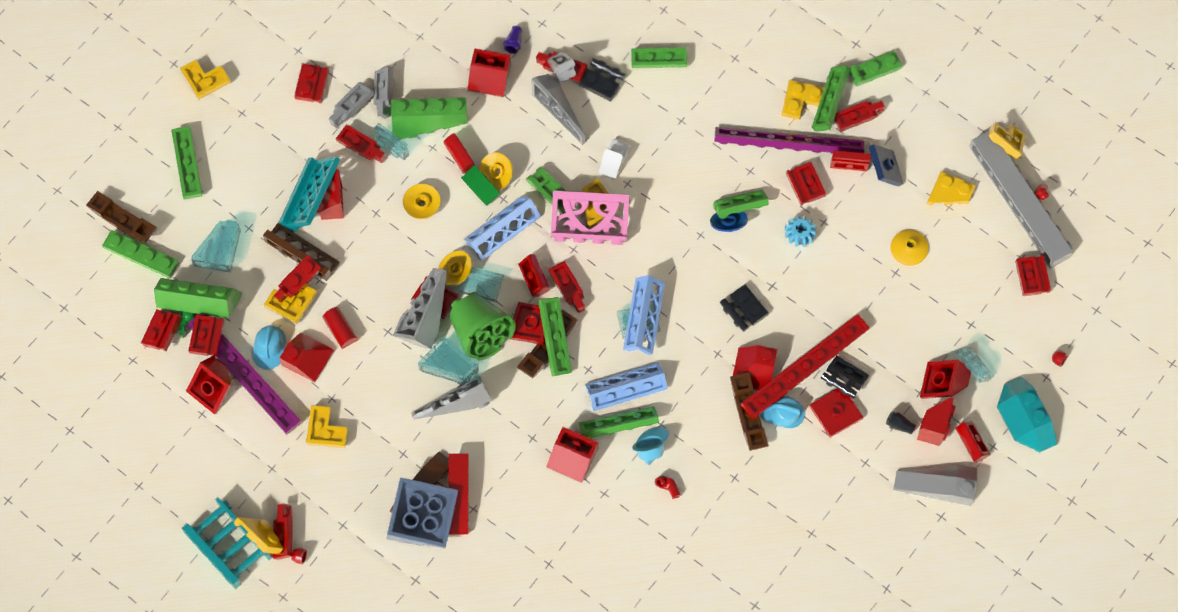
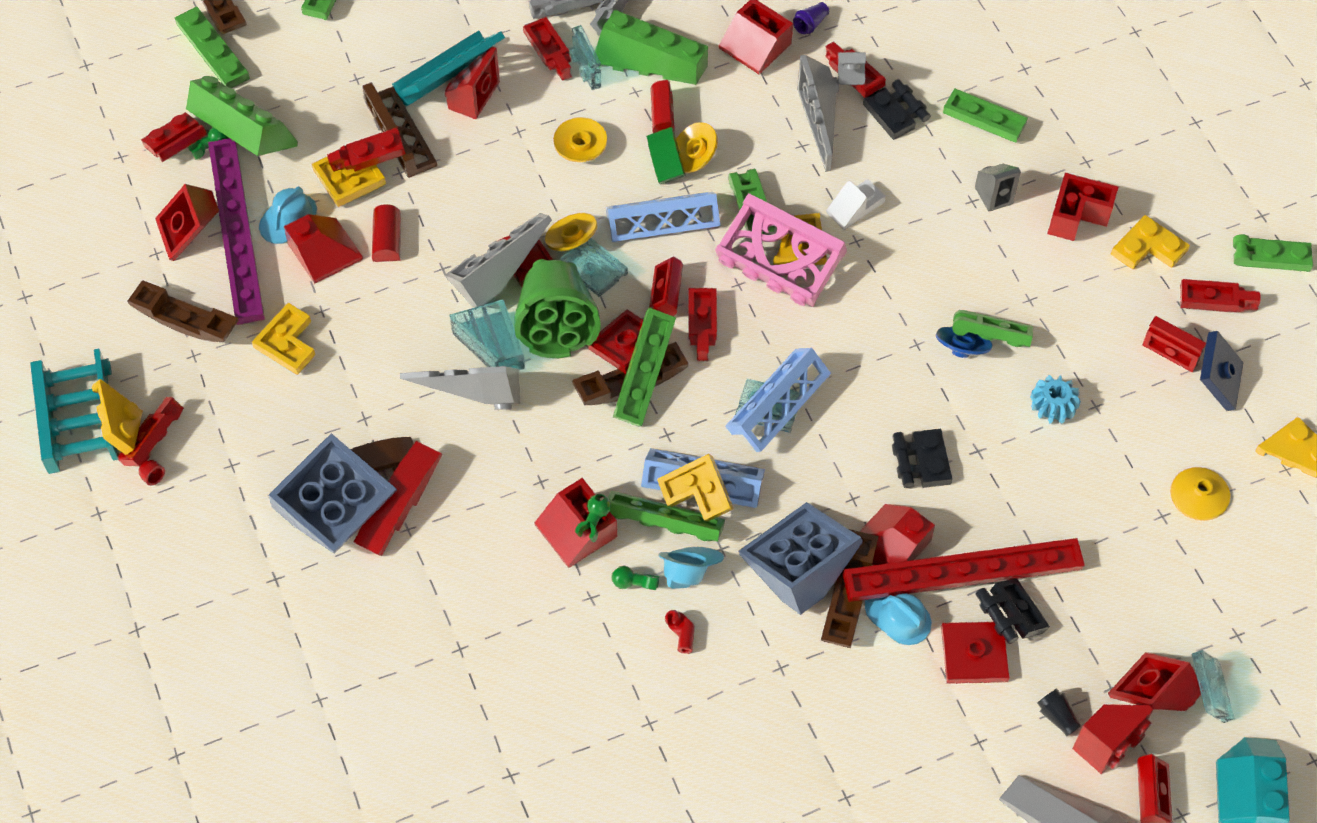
camera: 30 degrees right, 10 degrees down
(206, 335) = (217, 162): red plate -> none
(219, 247) = (304, 80): clear light blue slope -> none
(251, 446) = (181, 316): none -> reddish brown slope
(585, 444) = (597, 510): none -> green arm
(617, 472) = (624, 577): none -> green arm
(631, 391) = (700, 480): none -> yellow plate
(693, 104) = (997, 185): none -> dark grey slope
(710, 405) = (801, 556): none -> sand blue slope
(748, 91) = (1081, 200): none -> red brick
(785, 140) = (1092, 280): magenta plate -> none
(806, 183) = (1097, 346): red plate -> none
(830, 98) = (1189, 259): bright green plate -> none

